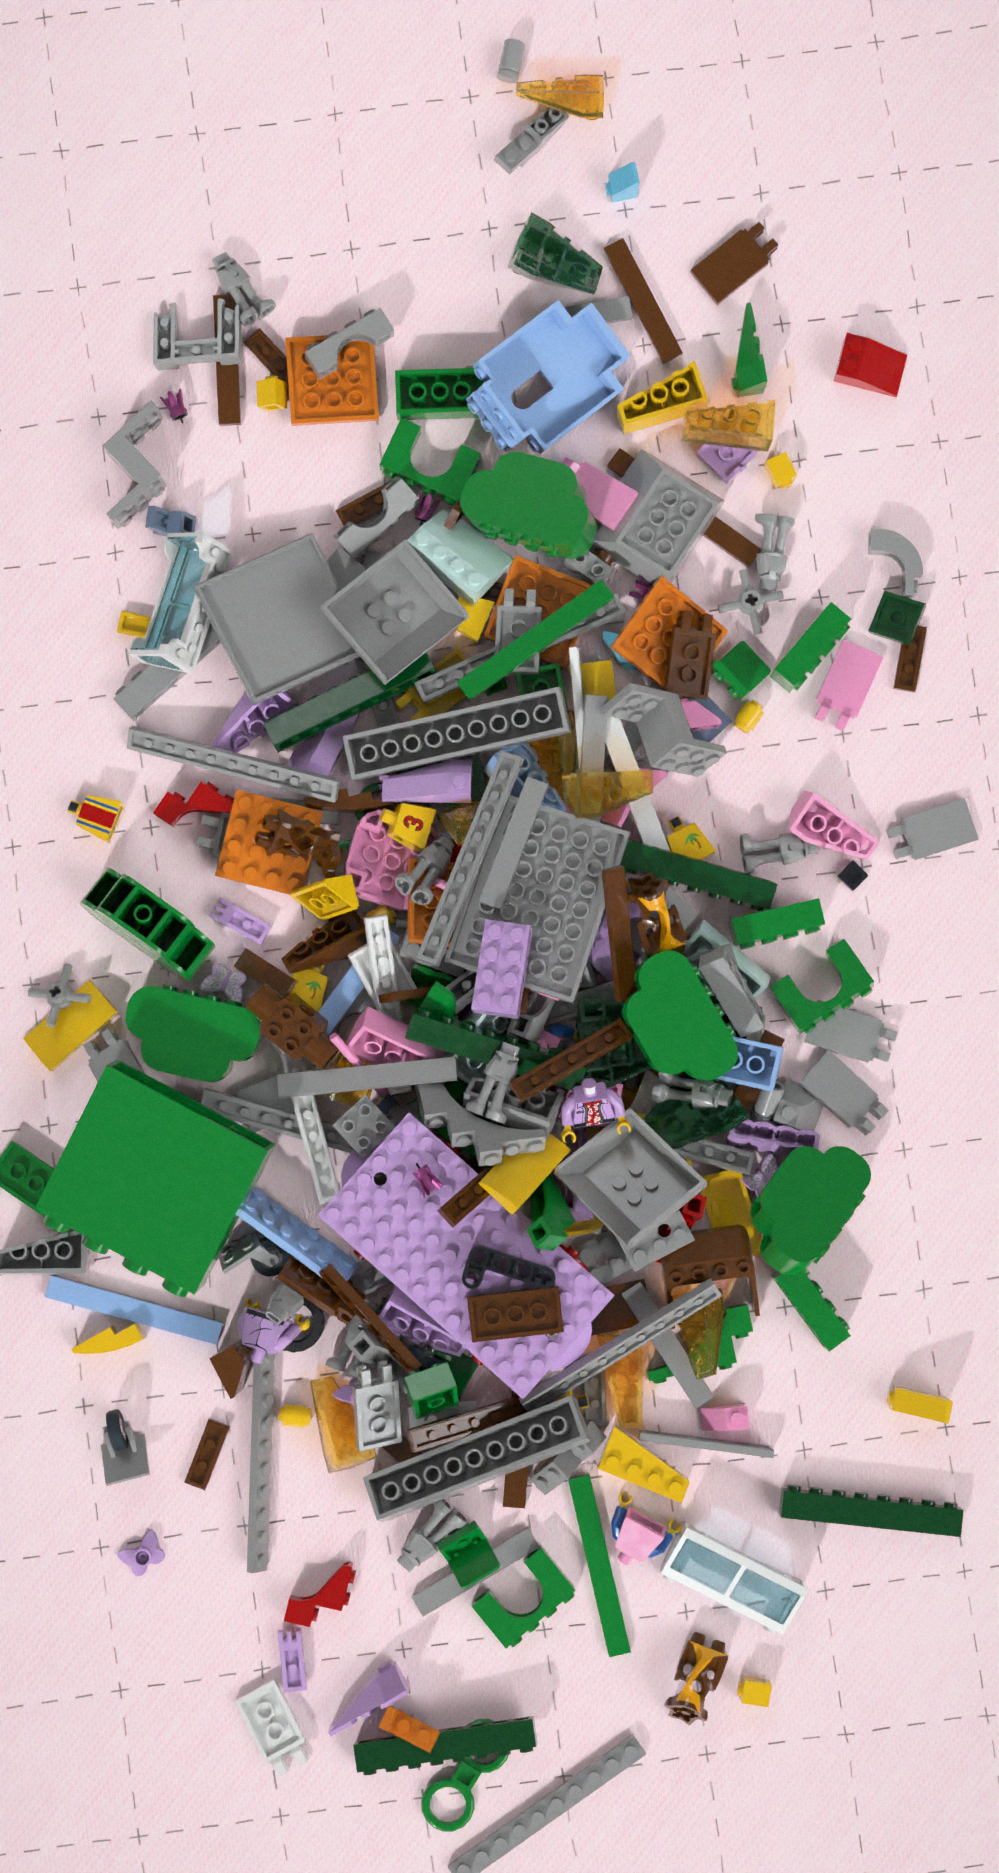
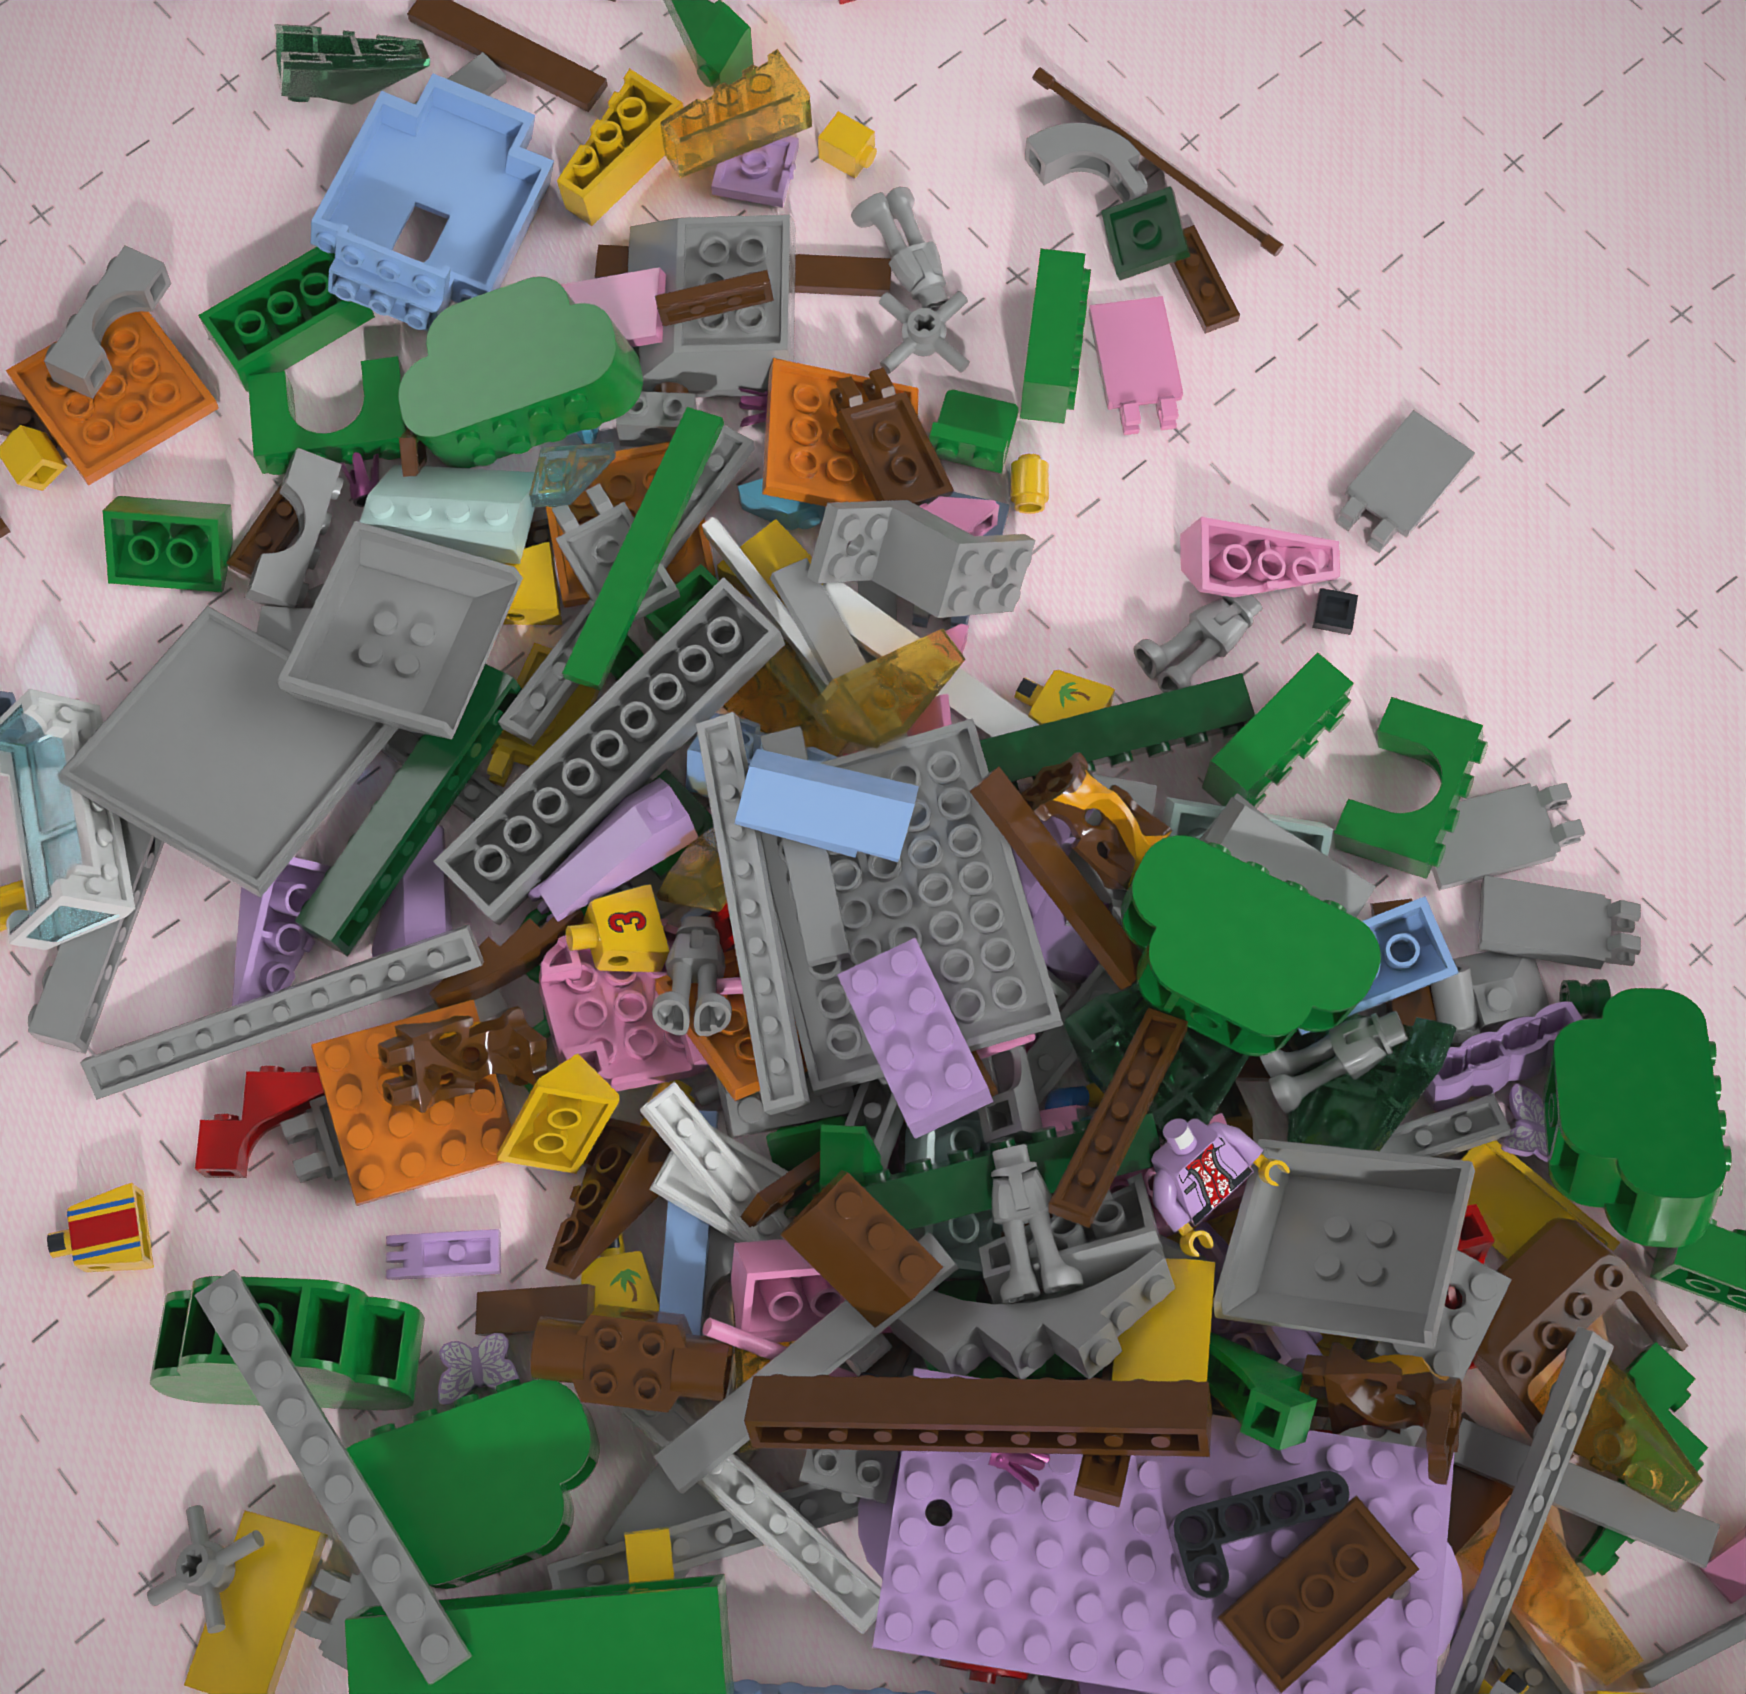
camera: 30 degrees left, 15 degrees down
(135, 1000) = (334, 1478): none -> light grey plate
(250, 1114) = (649, 1554): none -> yellow brick
(313, 482) = (167, 543): none -> green slope
(418, 1047) = (861, 1249): none -> reddish brown slope
(420, 1152) = (981, 1415): none -> reddish brown brick
(524, 572) = (567, 471): none -> clear light blue wing
(534, 833) = (826, 806): none -> light blue slope
(604, 1253) = (1365, 1394): none -> reddish brown hips
(650, 529) = (714, 298): none -> reddish brown tile
(831, 1136) = (1588, 998): none -> dark green wheel
(933, 583) = (1267, 241): none -> reddish brown piece

